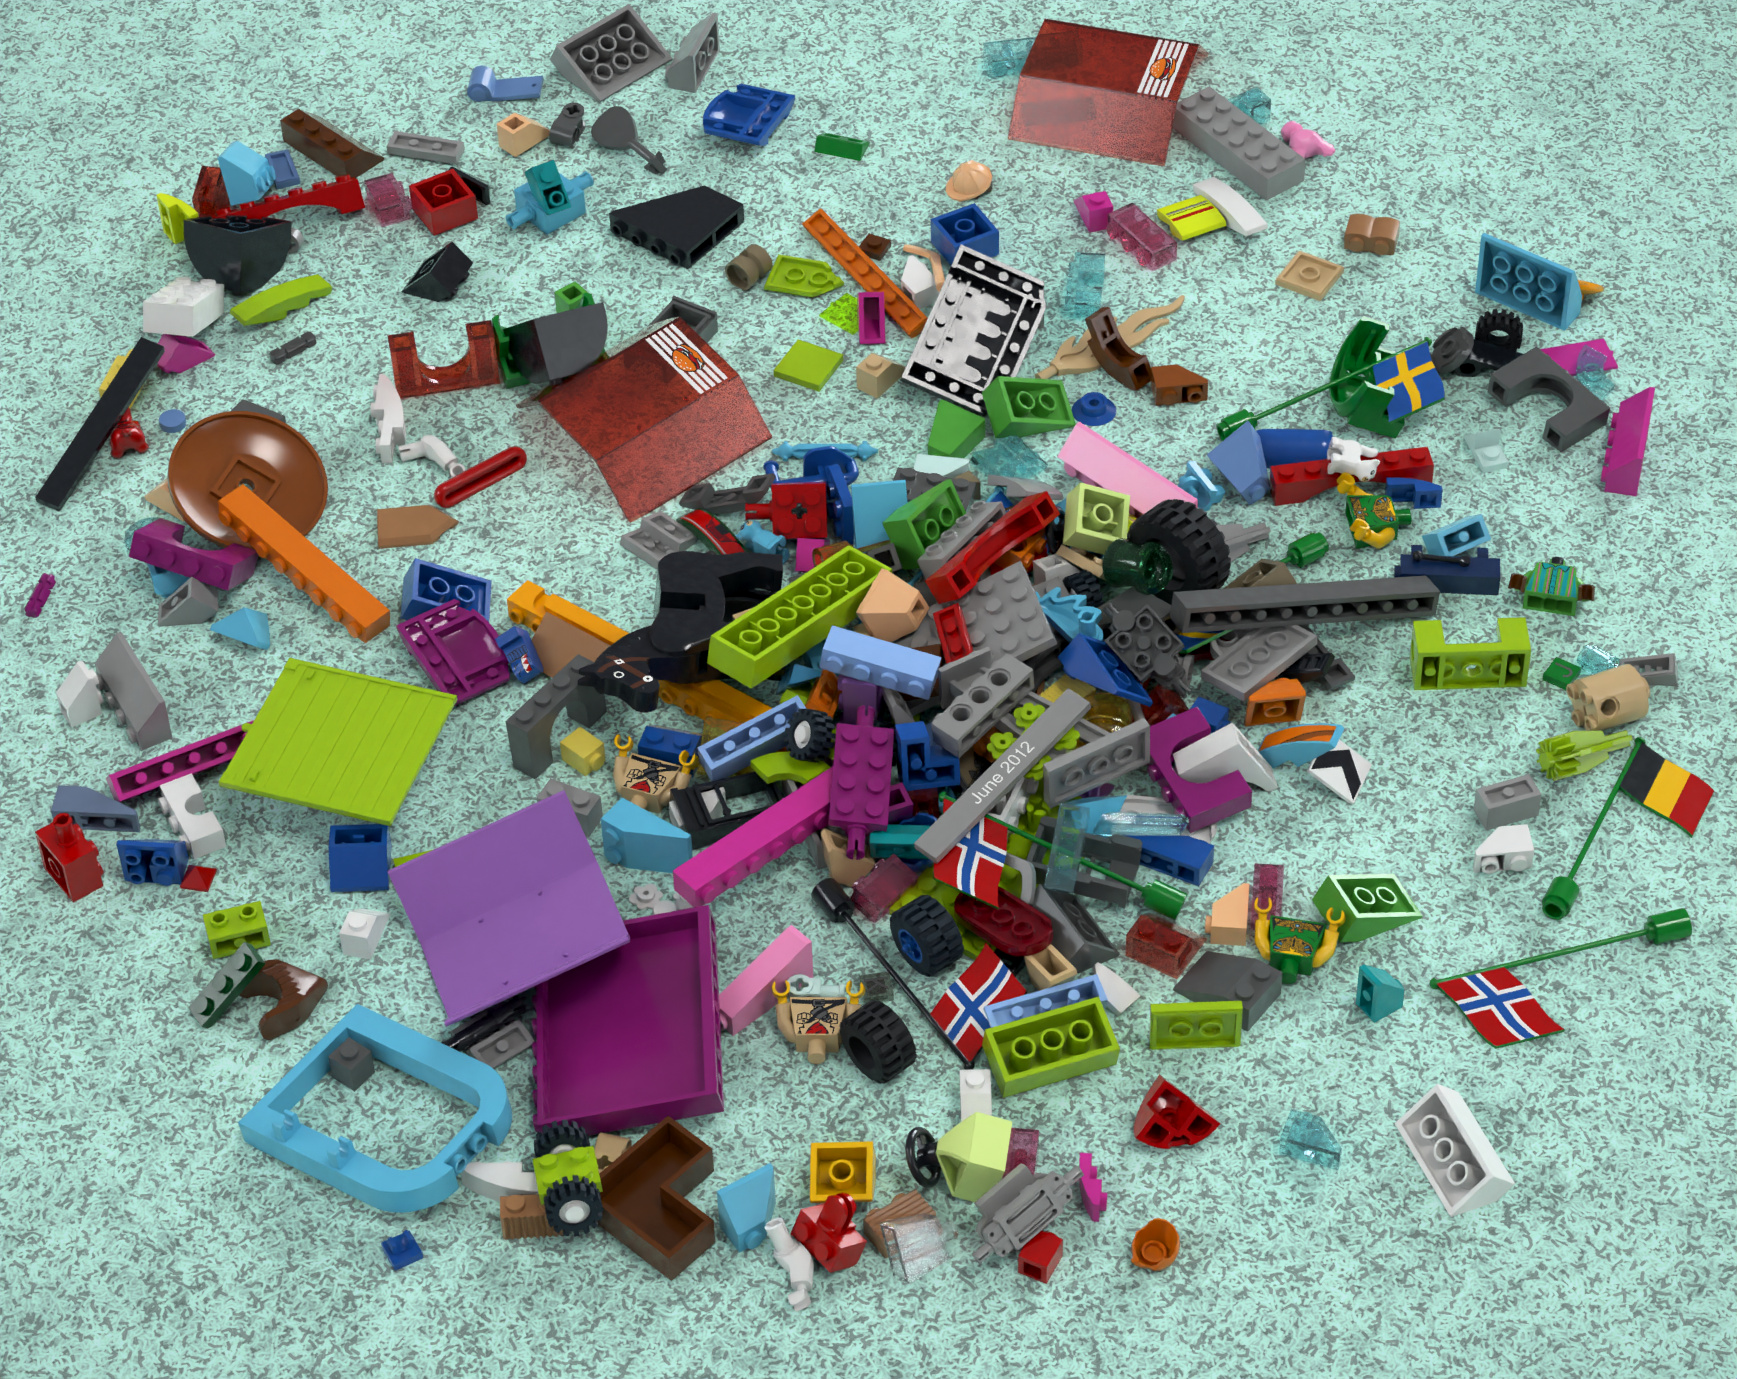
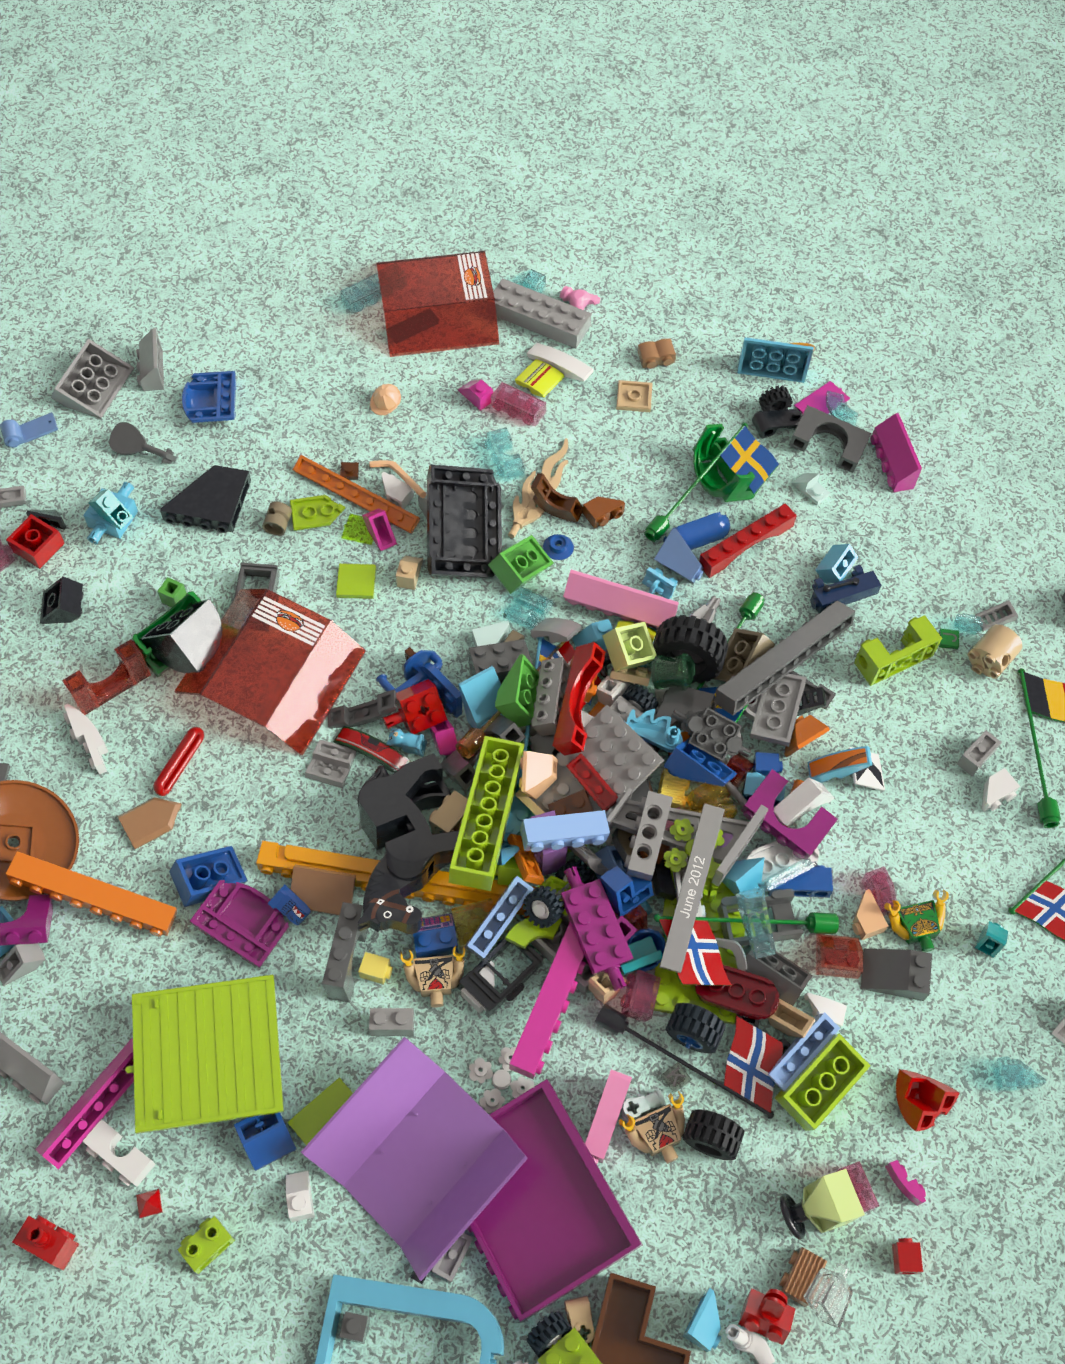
camera: 30 degrees left, 15 degrees up
(94, 810) = (29, 1184): sand blue slope -> none
(153, 861) = (113, 1207): blue slope -> none
(226, 985) = (228, 1305): plate -> none
(246, 626) = (75, 965): medium azure slope -> none
(294, 988) = (280, 1278): reddish brown animal -> none
(435, 450) = (135, 751): white arm -> none
(520, 133) = (61, 465): light nougat slope -> none
(568, 125) = (91, 446): dark grey piece -> none
(643, 839) = (460, 1031): medium azure slope -> none
(785, 450) = (400, 648): medium azure wheel -> none
(841, 146) = (285, 399): green slope -> none
(842, 1168) = (748, 1258): yellow slope -> none
(955, 431) = (482, 601): bright green slope -> none
(964, 227) = (408, 444): blue brick -> none
(975, 1092) = (797, 1150): white slope -> none
(1021, 1208) = (886, 1236): light grey piece -> none
(1155, 1245) = (975, 1214): orange hair -> none
(1195, 1025) = (902, 1020): lime tile -> none
(1346, 458) = (750, 533): white animal -> none
(1369, 902) = (942, 869): bright green slope -> none
(1371, 516) = (776, 566): torso -> none
(1420, 492) = (793, 537): blue slope -> none
(1451, 349) = (757, 421): dark grey tile -> none
(1552, 587) = (913, 577): torso -> none
(1578, 751) = (992, 703): lime piece -> none

